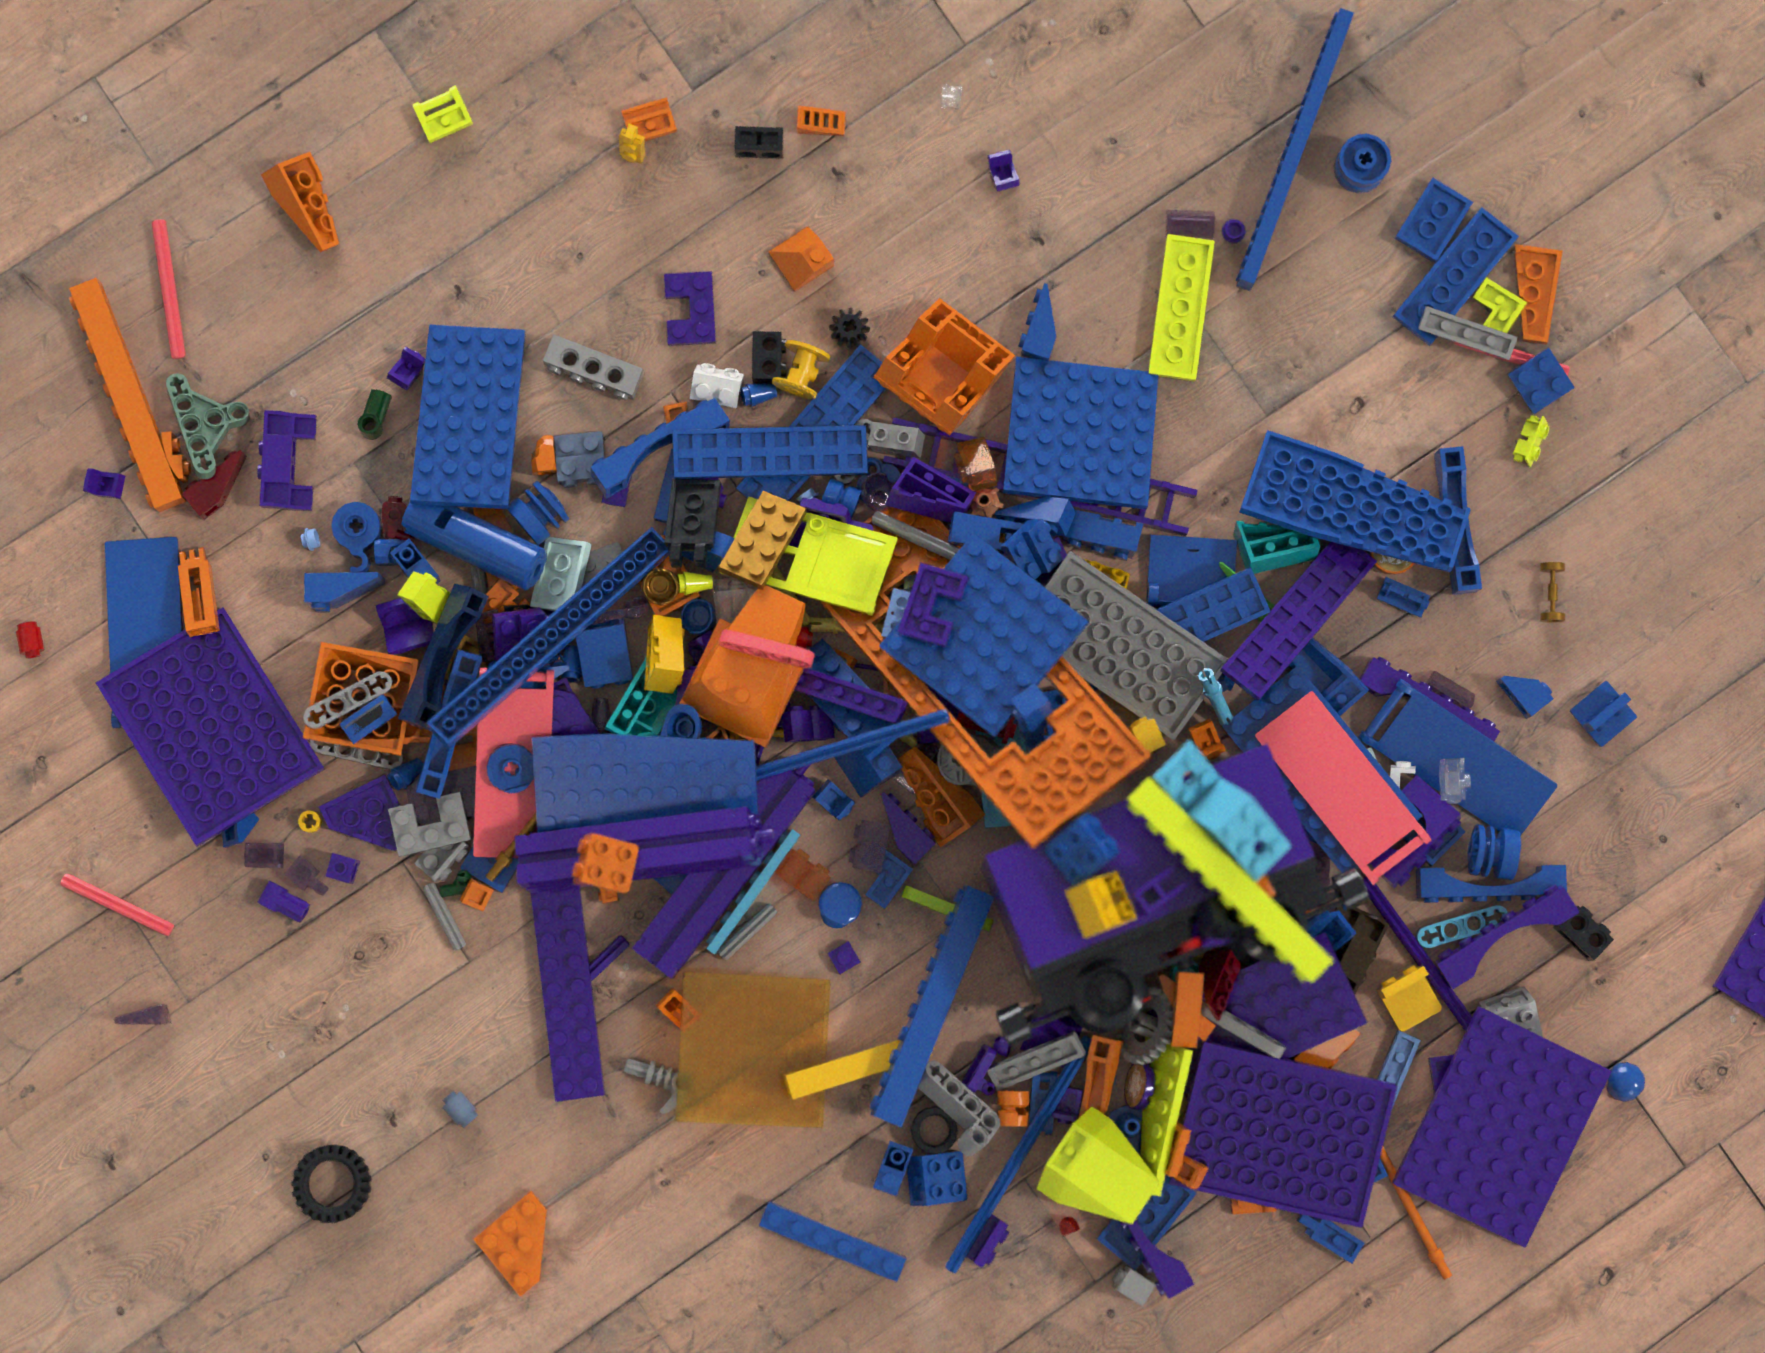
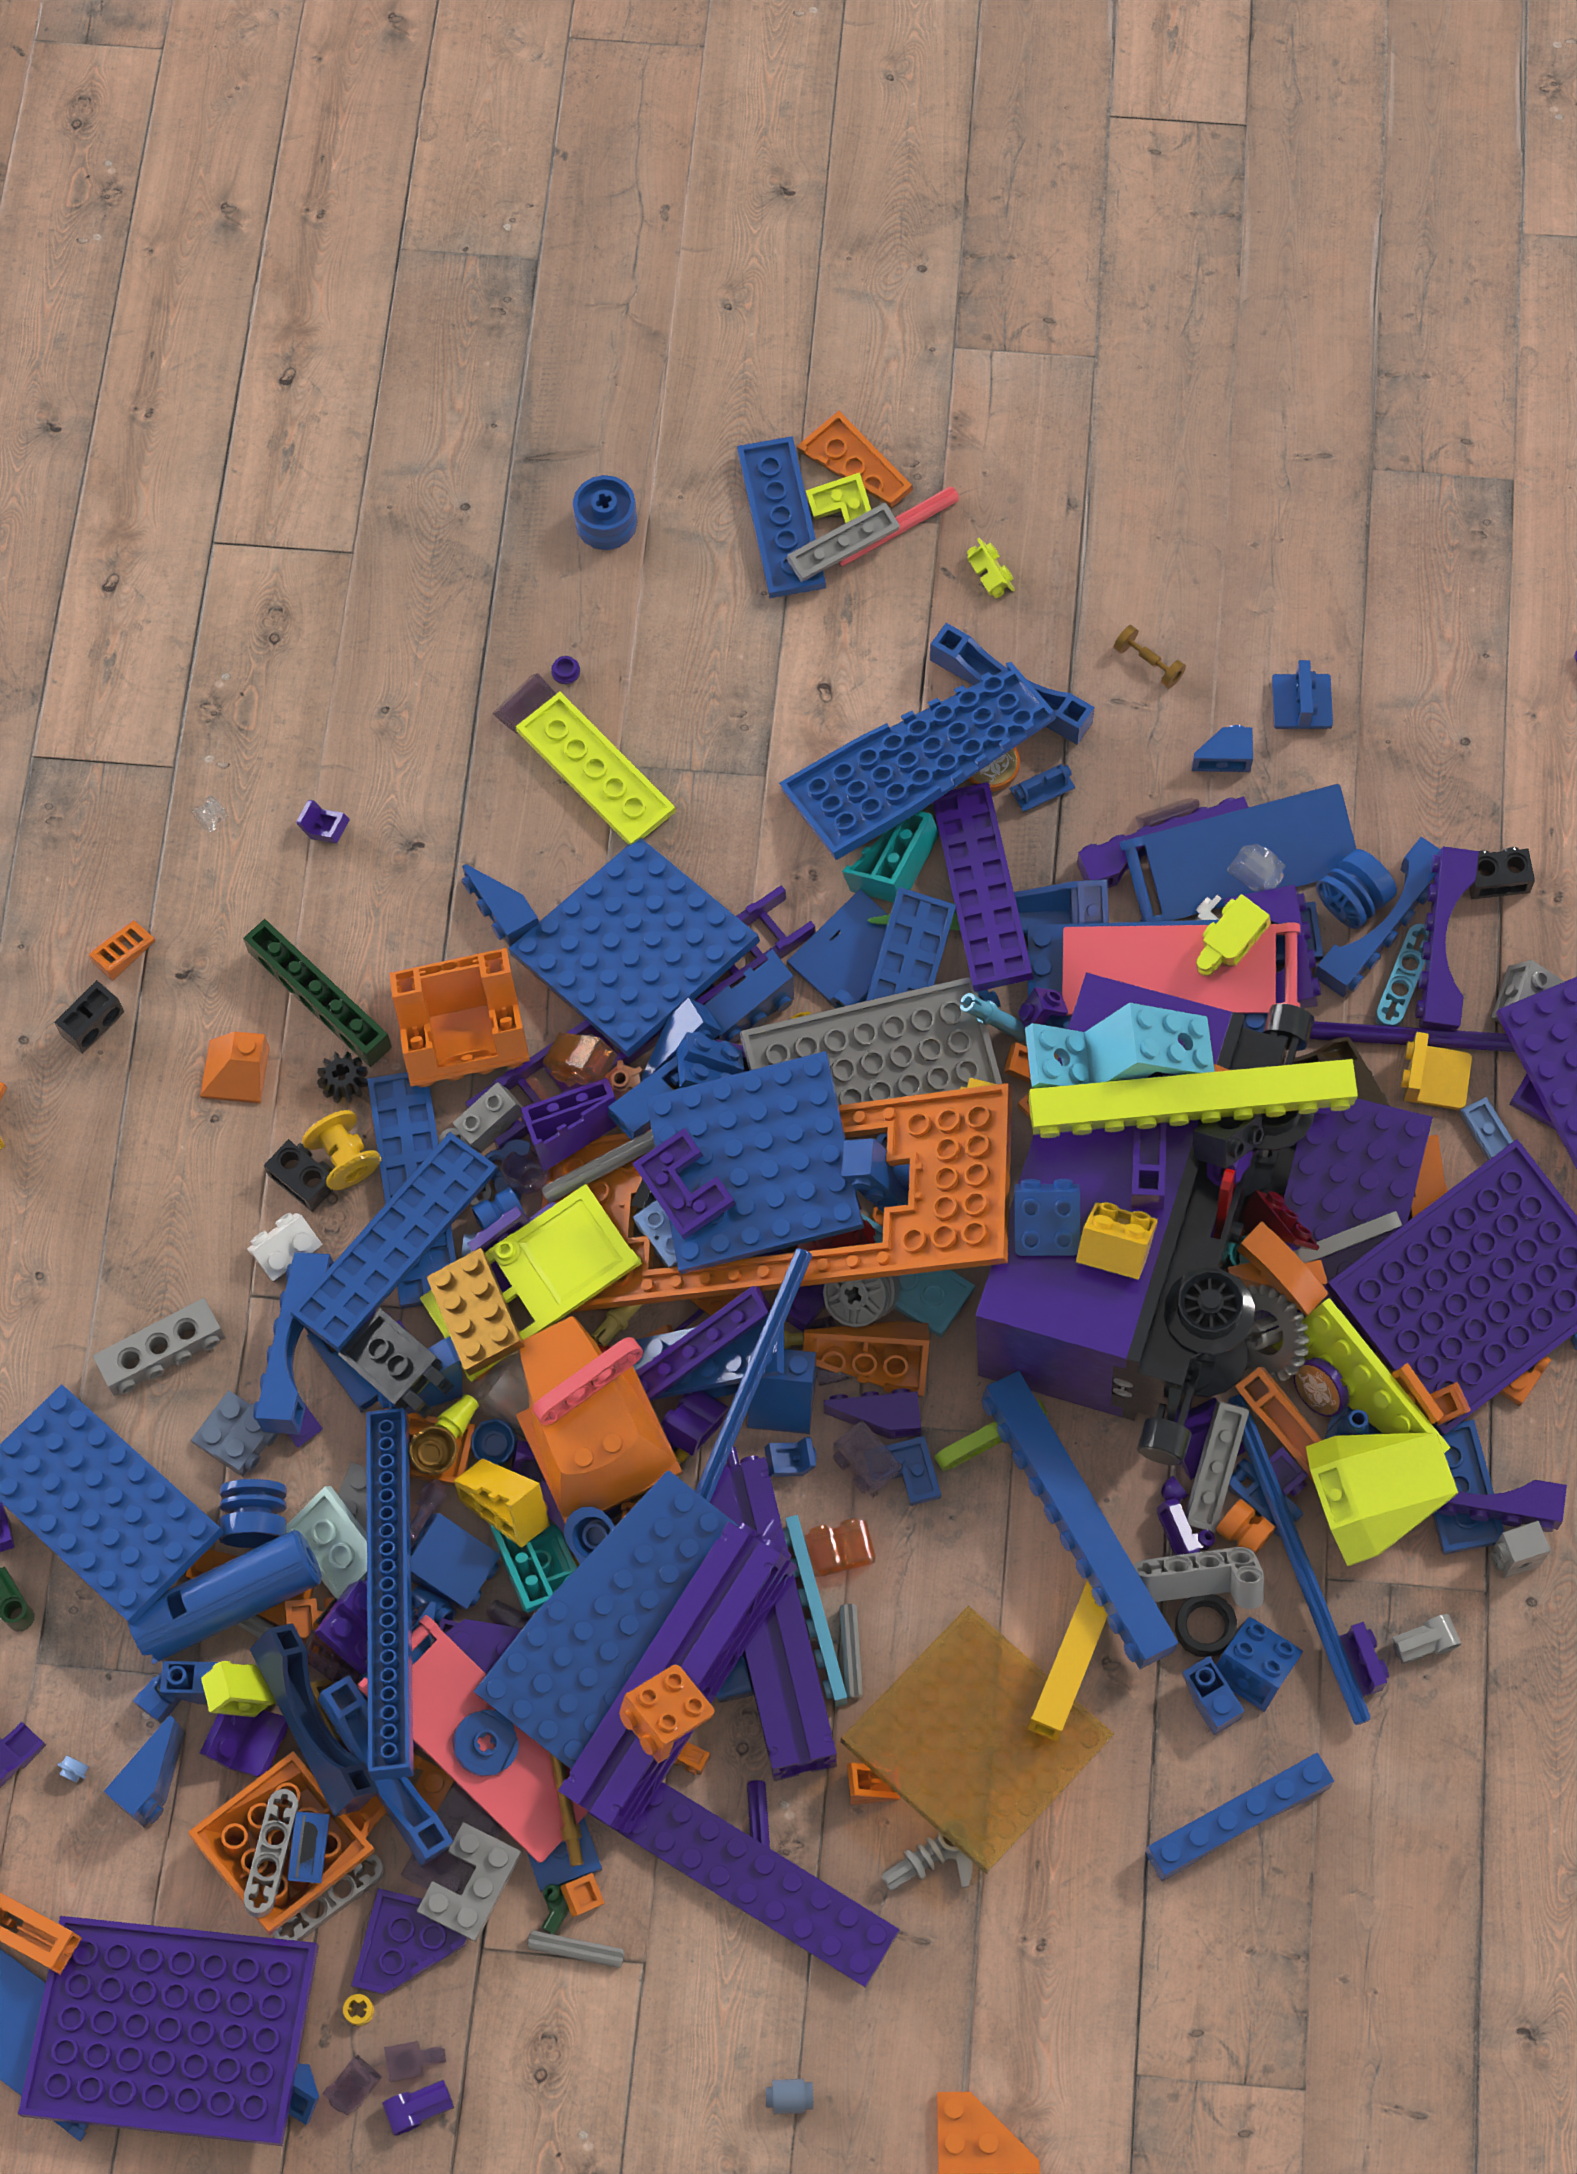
camera: 40 degrees left, 15 degrees down
(342, 868) = (436, 2013): dark purple brick -> none
(361, 541) = (118, 1724): blue piece -> none
(392, 515) = (128, 1665): dark red piece -> none
(405, 774) = (395, 1868): blue cone -> none
(438, 861) = (514, 1909): light grey bracket -> none
(544, 457) = (204, 1465): orange rock -> none
(673, 410) = (271, 1306): orange tile -> none
(701, 325) = (177, 1188): dark purple plate -> none
(757, 393) = (327, 1213): blue cone -> none
(839, 905) = (901, 1537): blue piece -> none
(844, 957) = (957, 1576): dark purple plate -> none
(889, 266) = (317, 993): none -> dark green brick
(1038, 1272) = (1435, 1636): none -> light grey piece
(1068, 1225) = (1408, 1570): clear red hinge -> none
(1246, 718) = (1041, 1005): none -> dark purple bracket
(1296, 144) = (540, 561): blue piece -> none
(1387, 804) = (1232, 935): none -> neon yellow hinge
(1433, 220) = (712, 495): blue plate -> none
(1540, 380) = (942, 518): blue plate -> none

